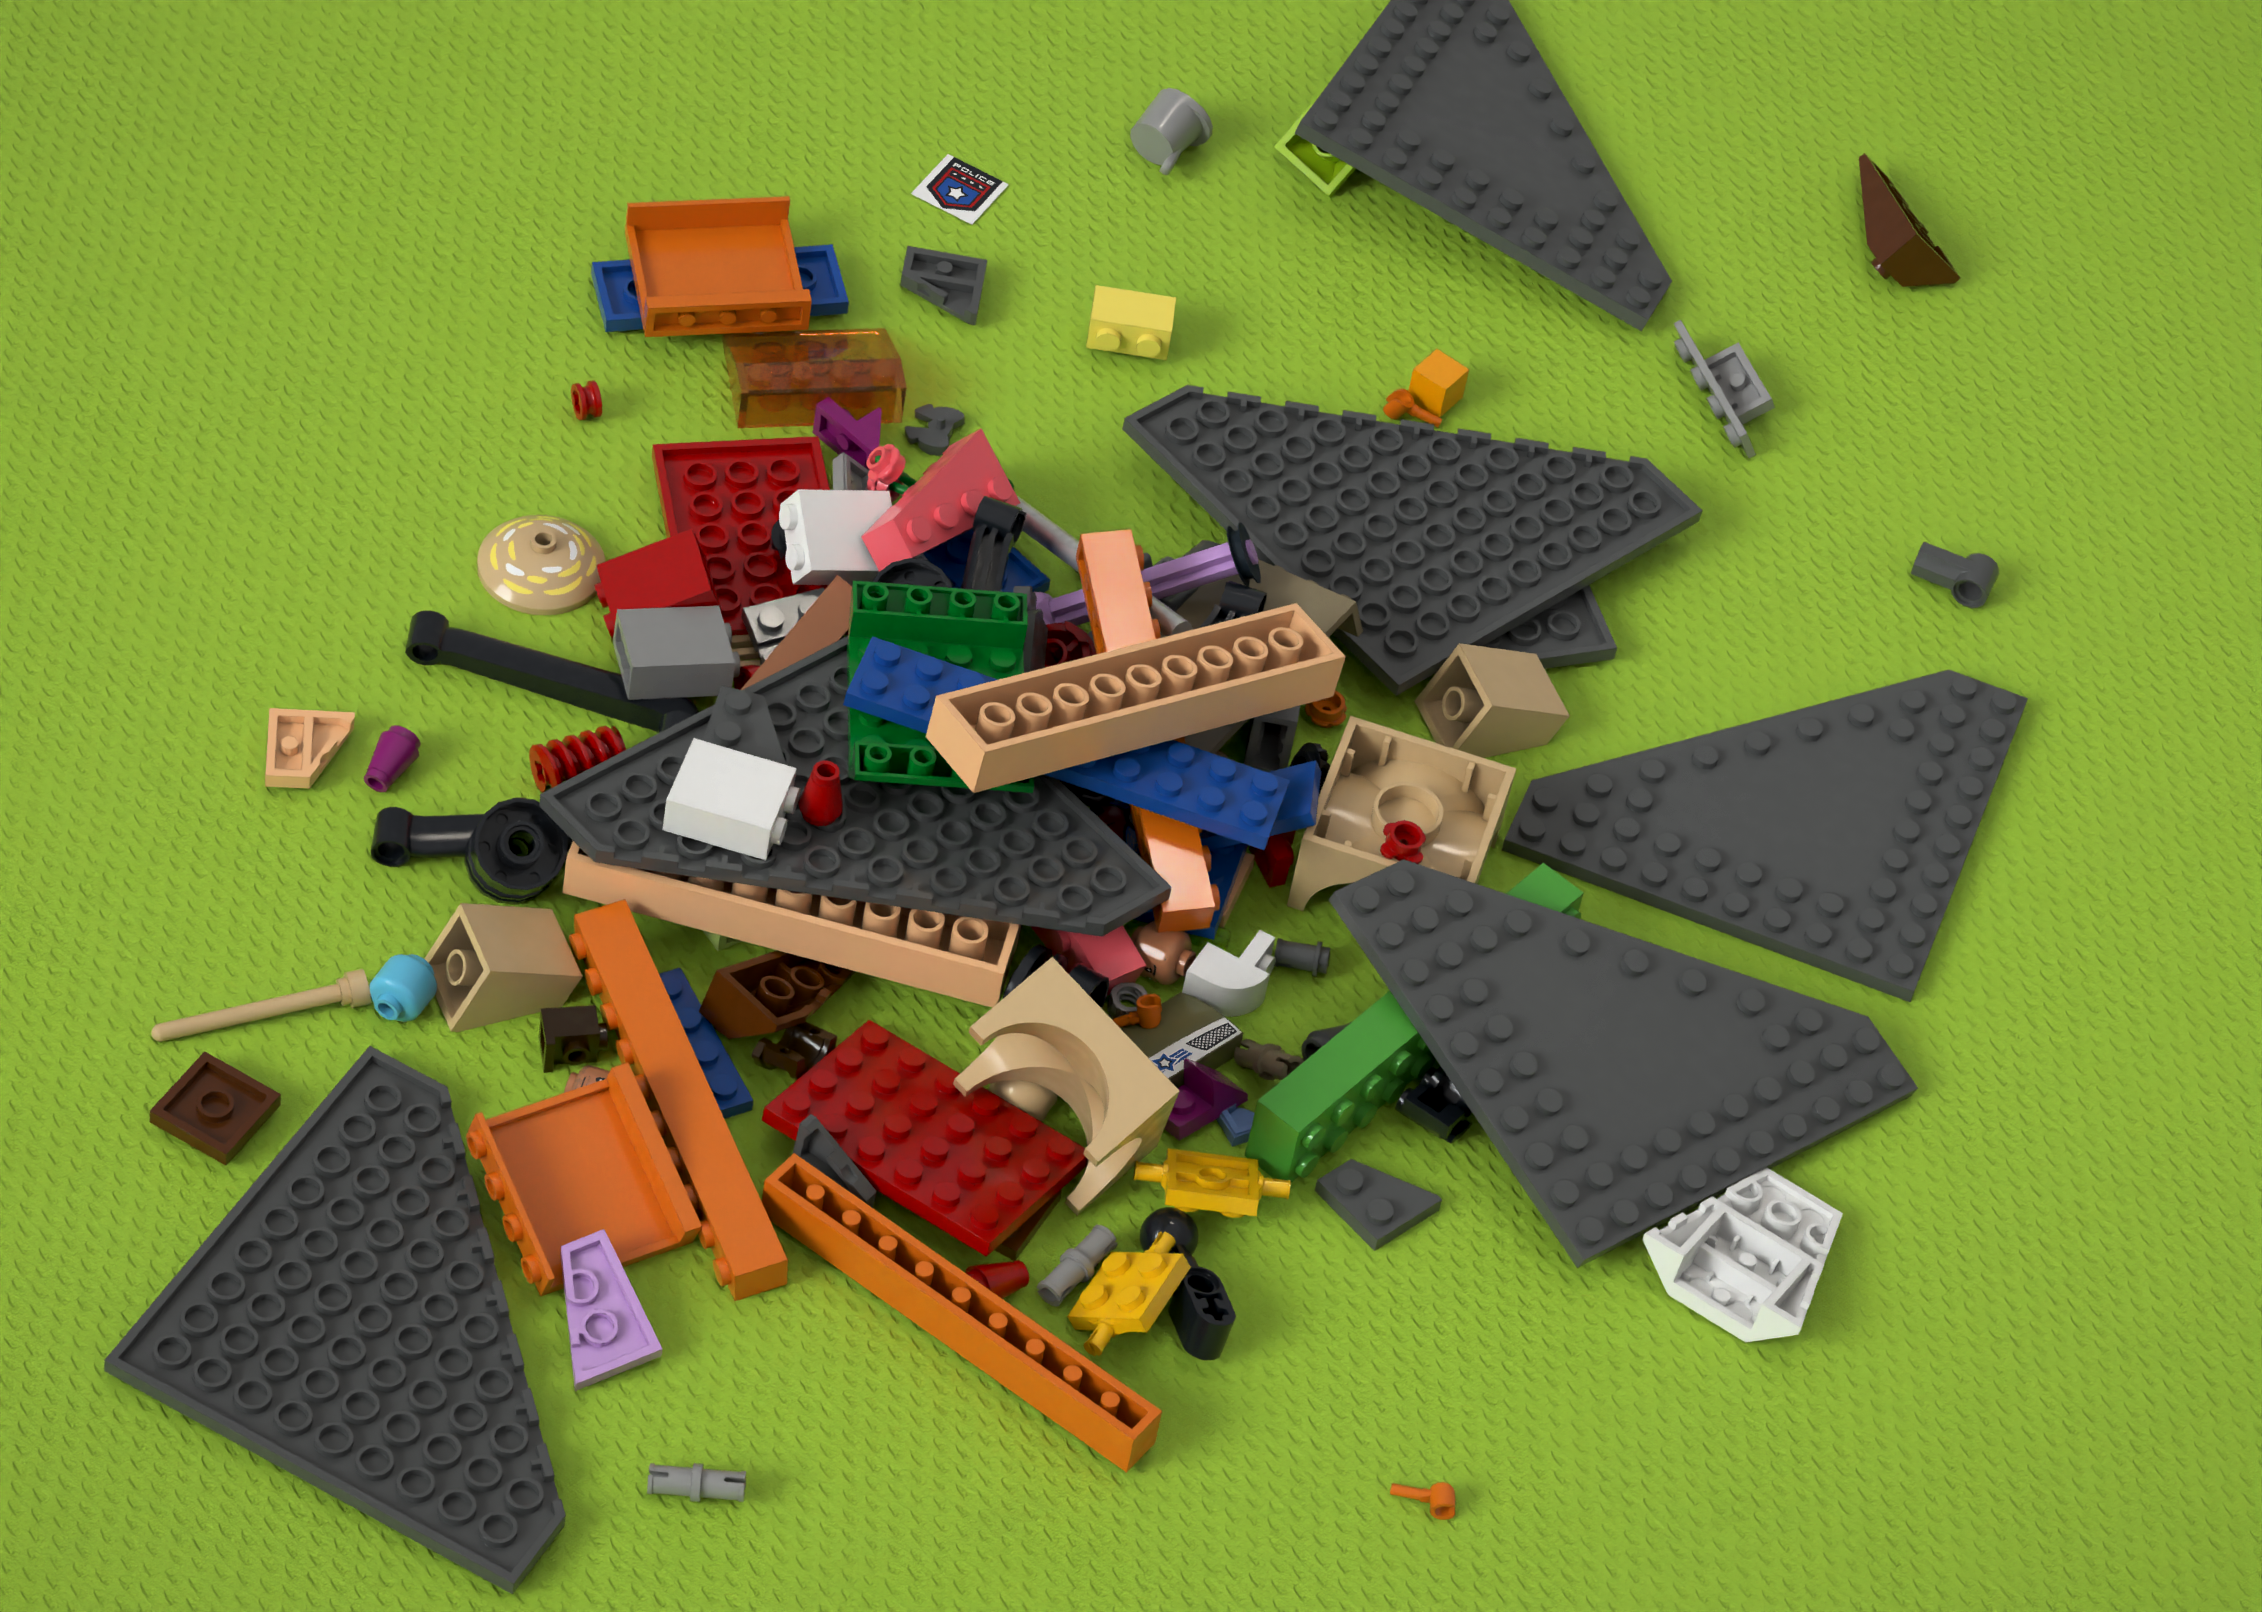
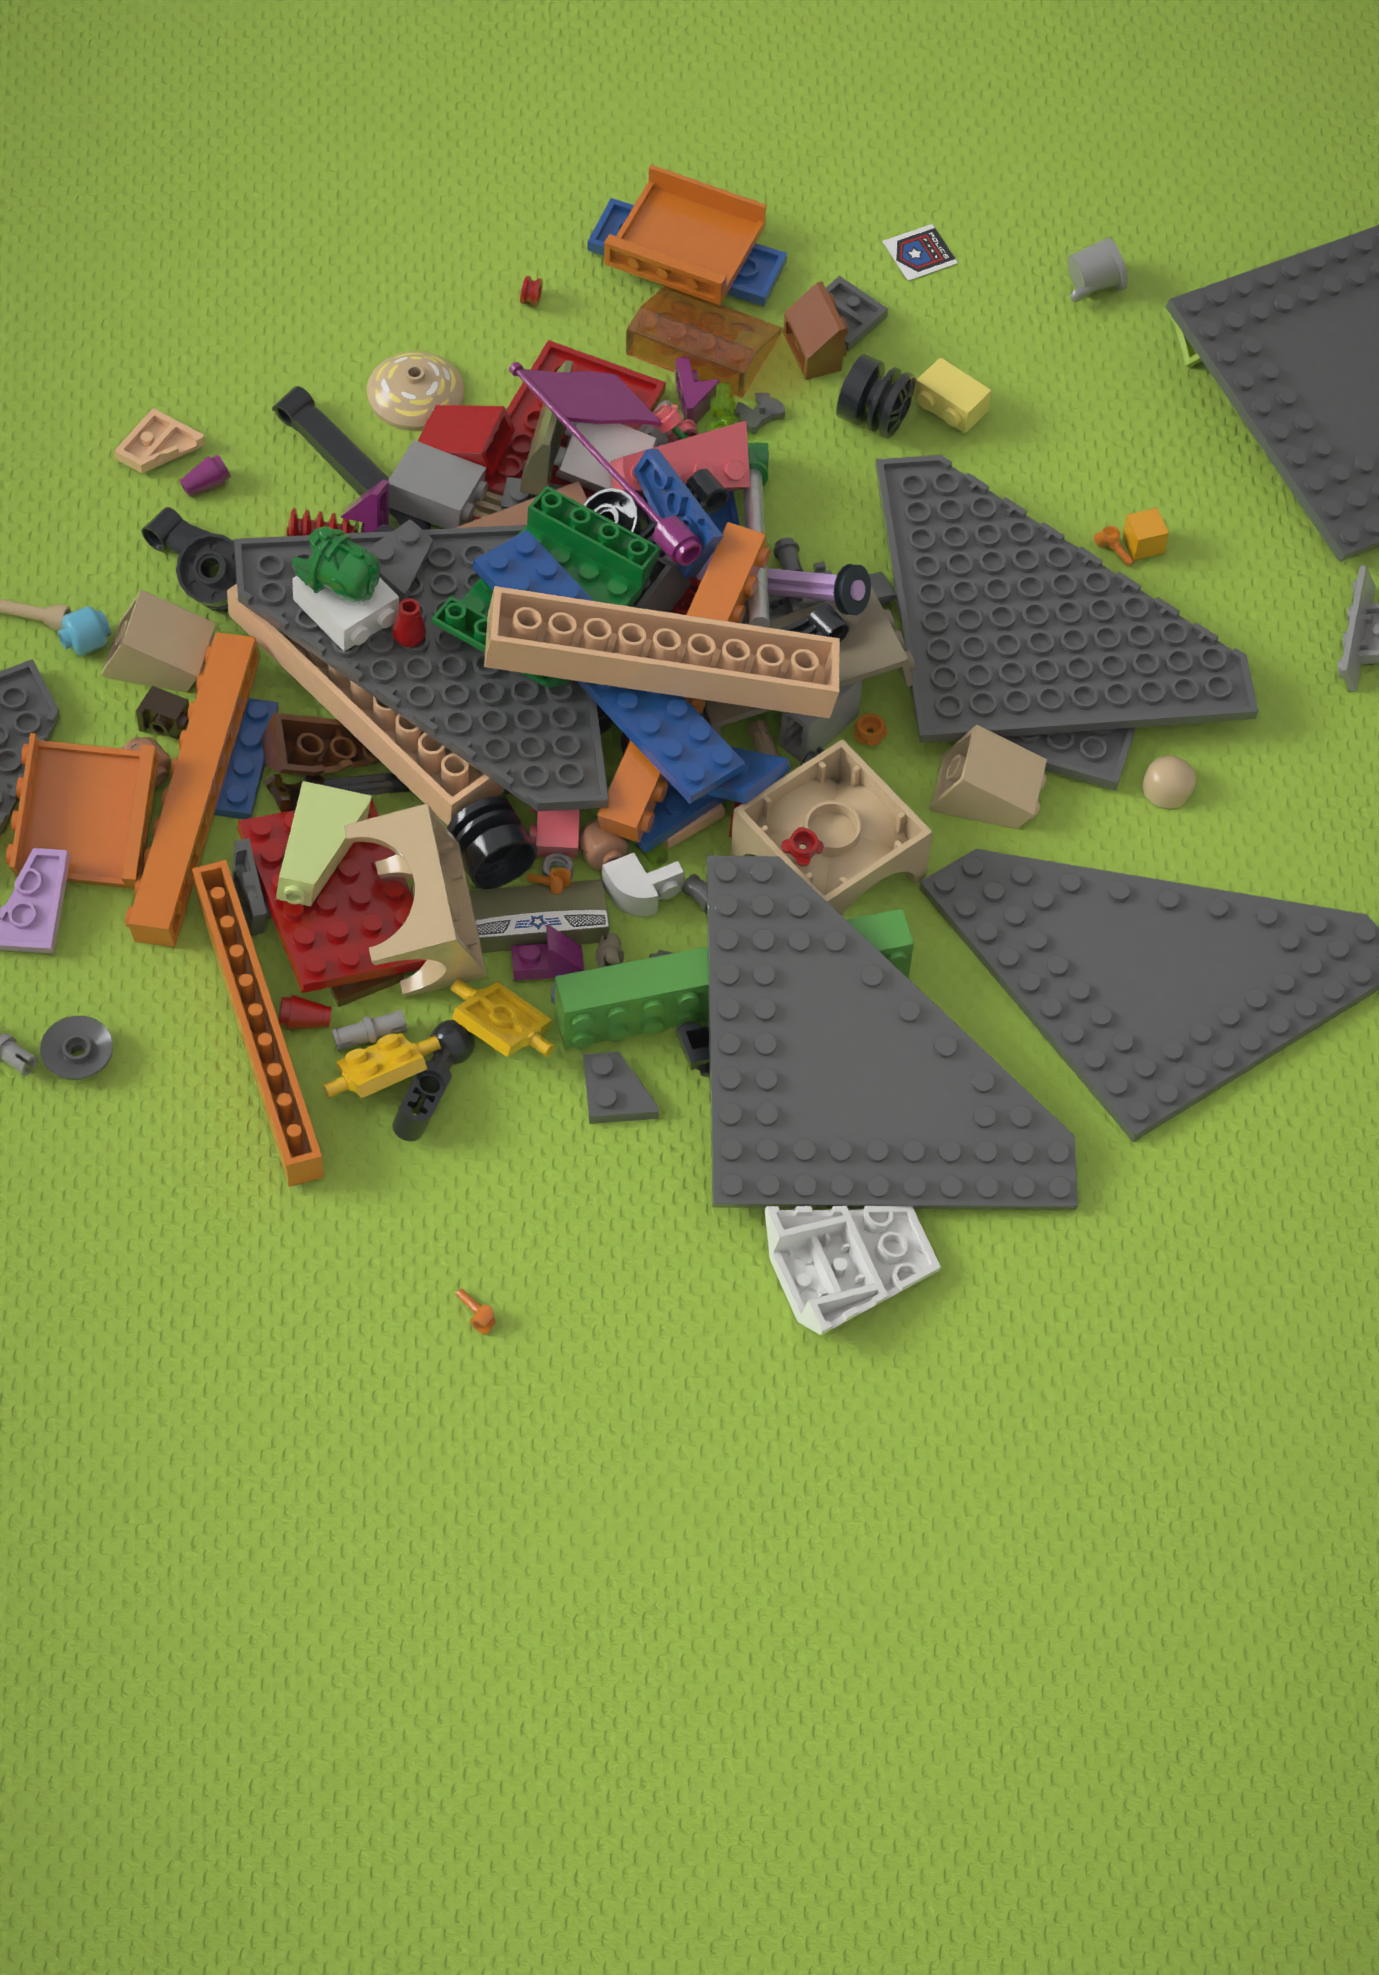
camera: 40 degrees right, 10 degrees up
(626, 707) = (370, 508): none -> magenta slope
(730, 758) = (338, 566): none -> green helmet
(763, 533) = (543, 448): none -> olive slope
(786, 1426) = (76, 1035): none -> dark grey dish
(813, 474) = (607, 400): none -> magenta flag
(862, 1008) = (369, 784): none -> black axle
(877, 1082) = (318, 840): none -> yellowish green slope
(904, 437) = (722, 407): none -> clear neon green plate
(939, 314) = (816, 332): none -> dark orange slope
(1009, 551) = (671, 497): none -> blue wing
(1056, 354) = (873, 395): none -> black wheel
(1659, 625) = (1169, 782): none -> tan hair

